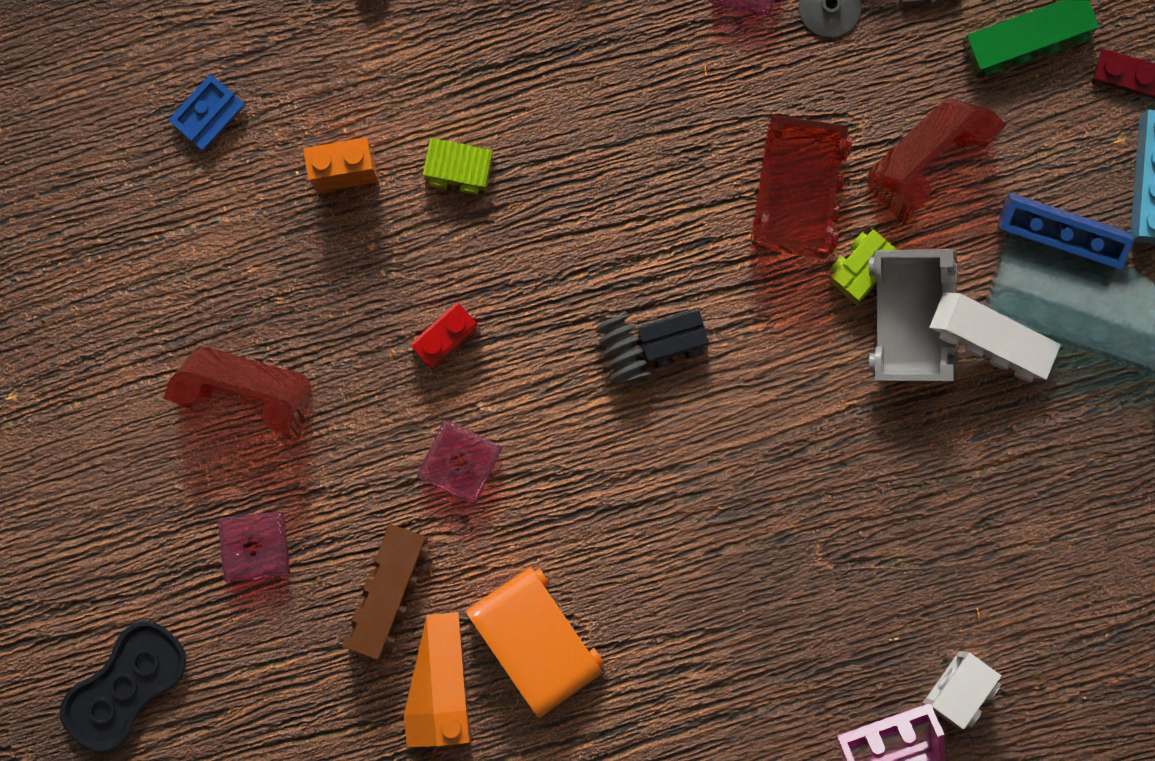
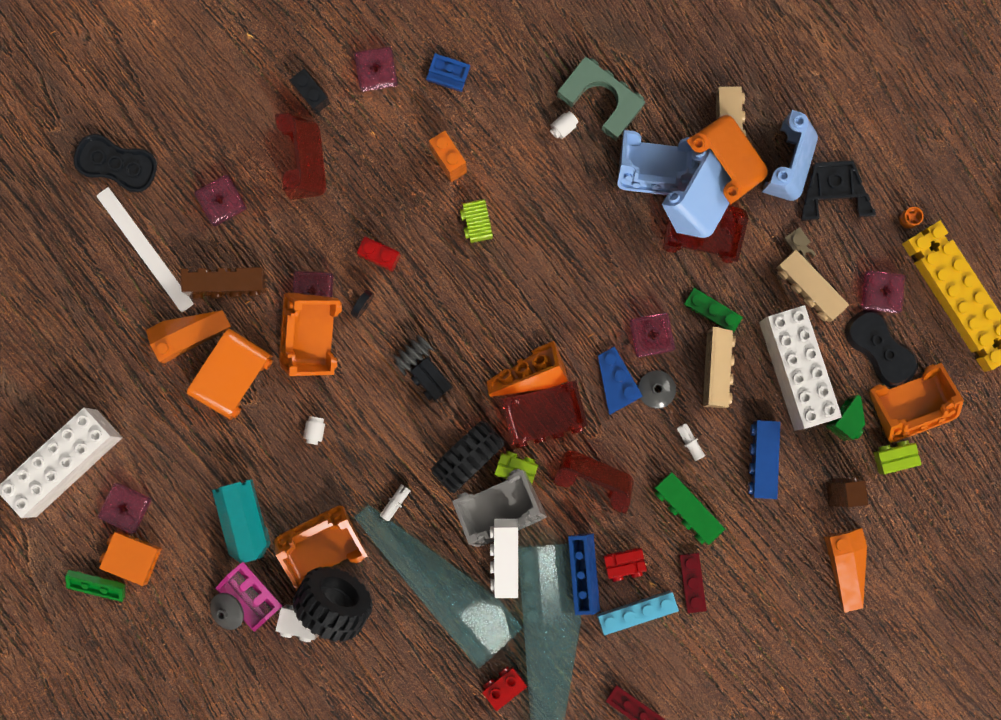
camera: 60 degrees right, 0 degrees up
(143, 336) = (309, 91): none -> black brick
(162, 238) = (386, 73): none -> clear pink brick
(278, 697) = (144, 249): none -> white sticker
(512, 393) = (362, 304): none -> black piece
(524, 496) = (308, 334): none -> orange windscreen
(675, 548) = (314, 430): none -> white brick
(728, 174) = (536, 372): none -> orange wedge
(770, 716) = (241, 521): none -> teal brick
(794, 59) = (617, 381): none -> blue wing
(820, 326) = (467, 456): none -> black tyre
(838, 472) = (395, 502): none -> white axle
(855, 615) = (318, 544): none -> orange windscreen
(958, 625) = (332, 604): none -> black tyre
(1032, 437) = (461, 605): none -> clear light blue wedge
(1073, 165) = (624, 563): none -> red brick

